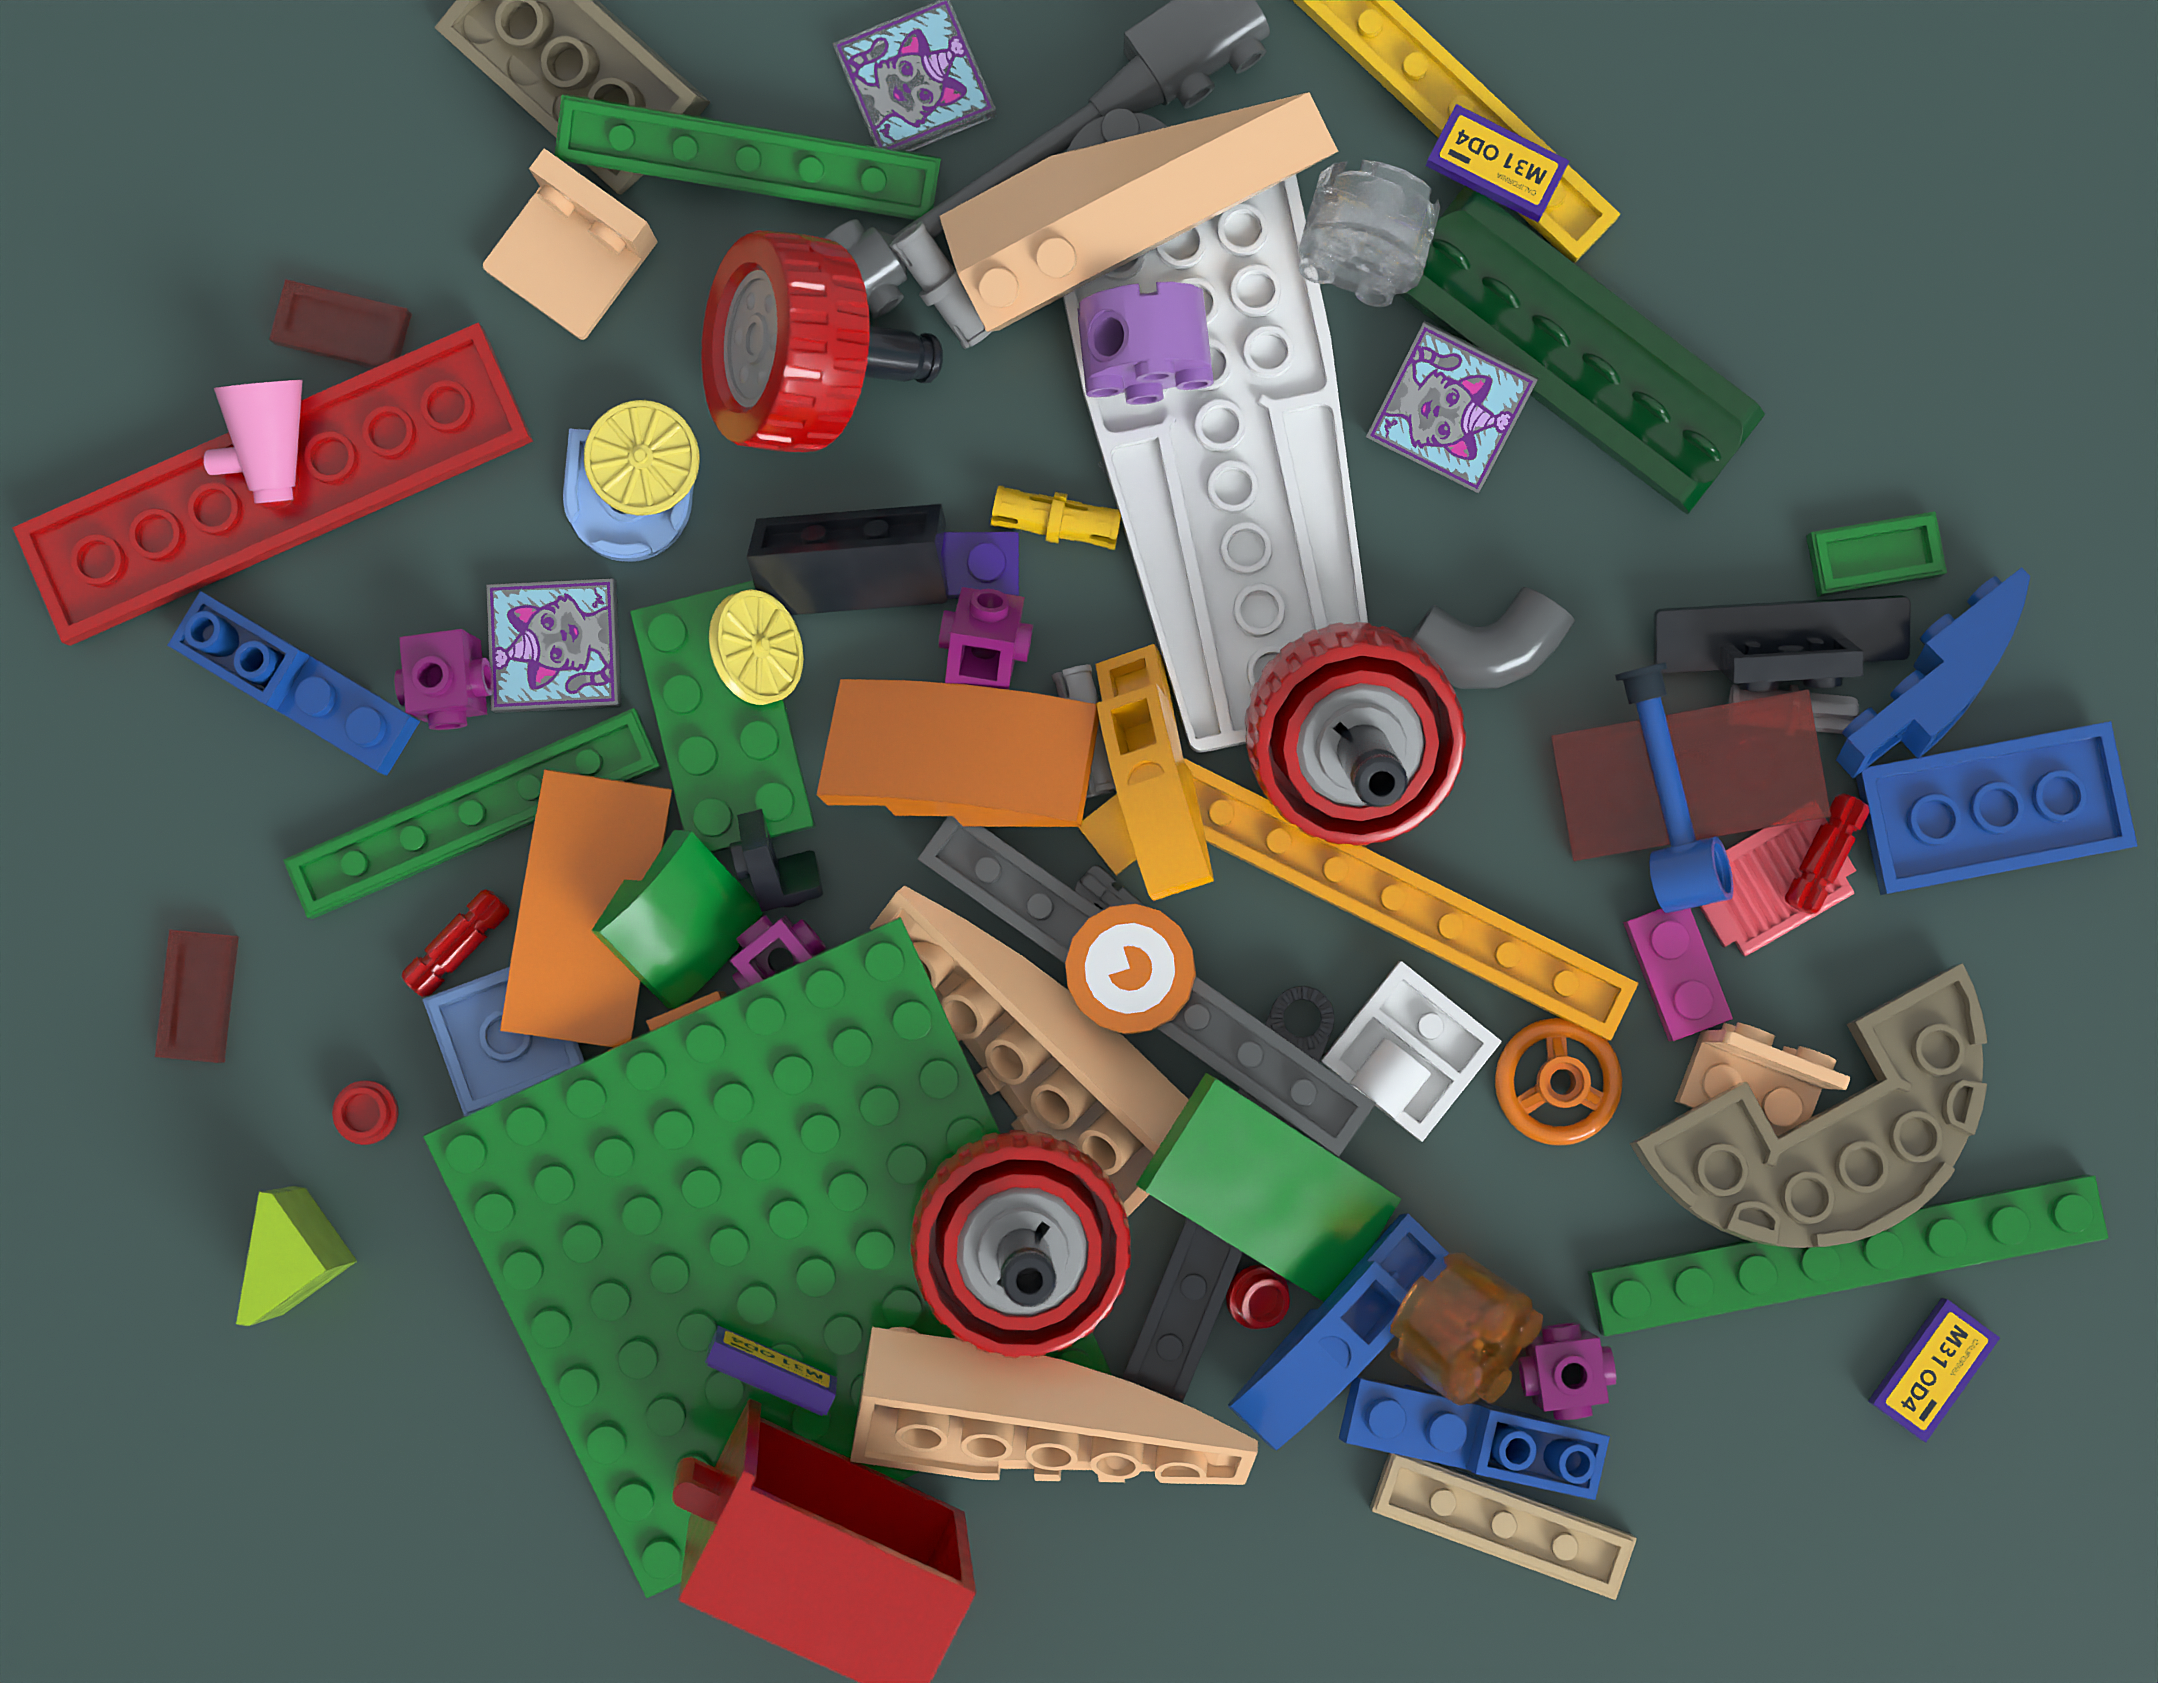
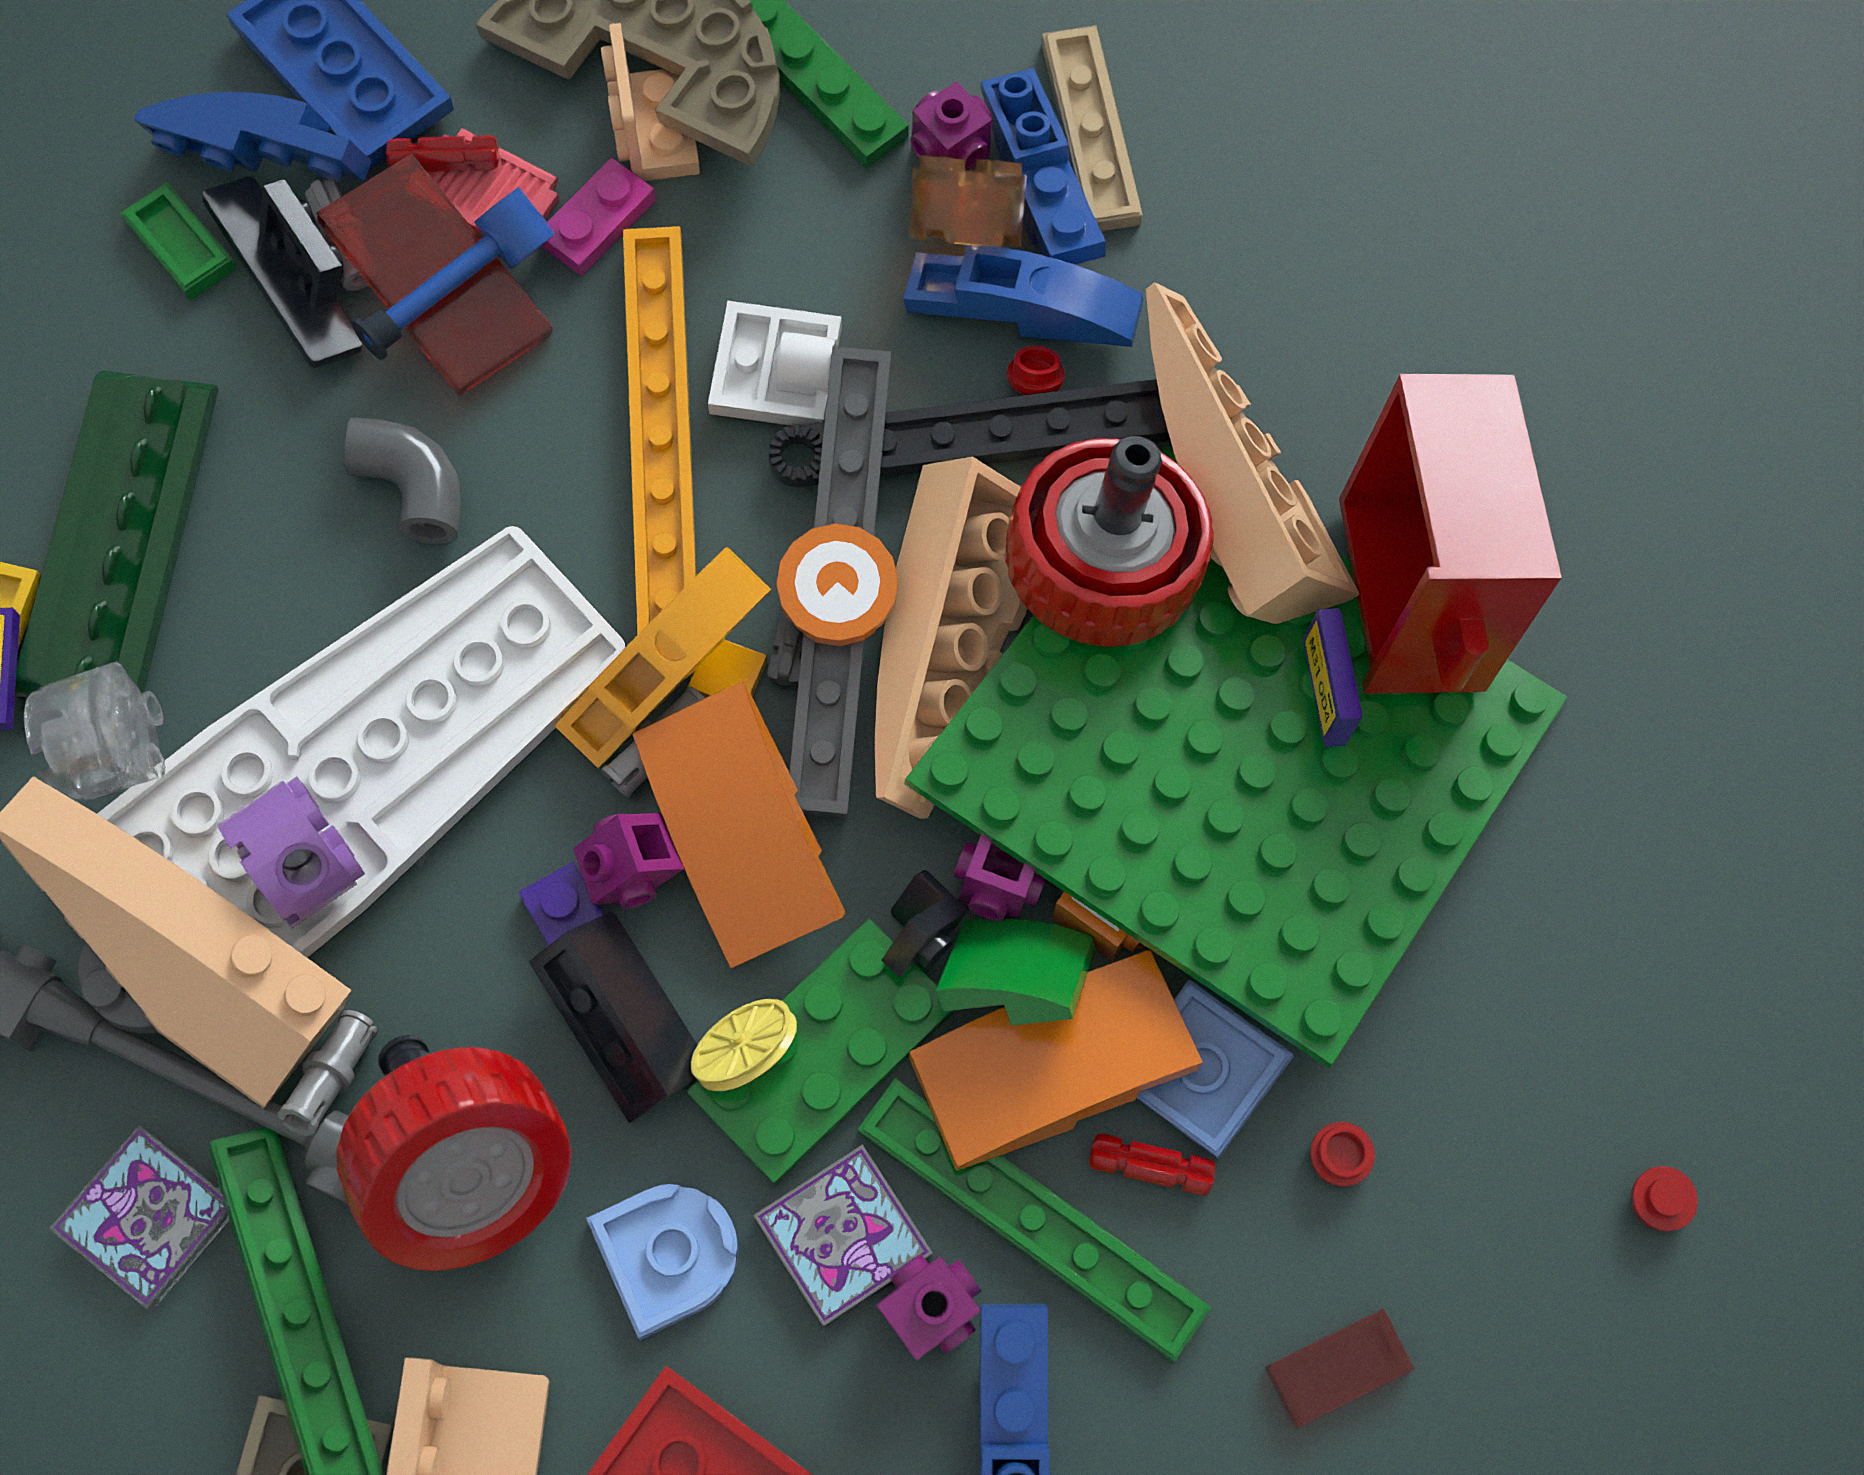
camera: 125 degrees left, 15 degrees down
(159, 1367) = (1664, 1199): none -> red plate
(288, 1255) = (1502, 1119): lime slope -> none
(641, 457) = (629, 1249): light yellow wheel -> none
(1056, 517) = (488, 869): yellow pin -> none
(1267, 1189) = (949, 395): tile -> none
(1354, 734) = (542, 516): red wheel -> none
(1451, 407) = (219, 602): tile -> none
(1580, 1090) = (733, 229): orange piece -> none

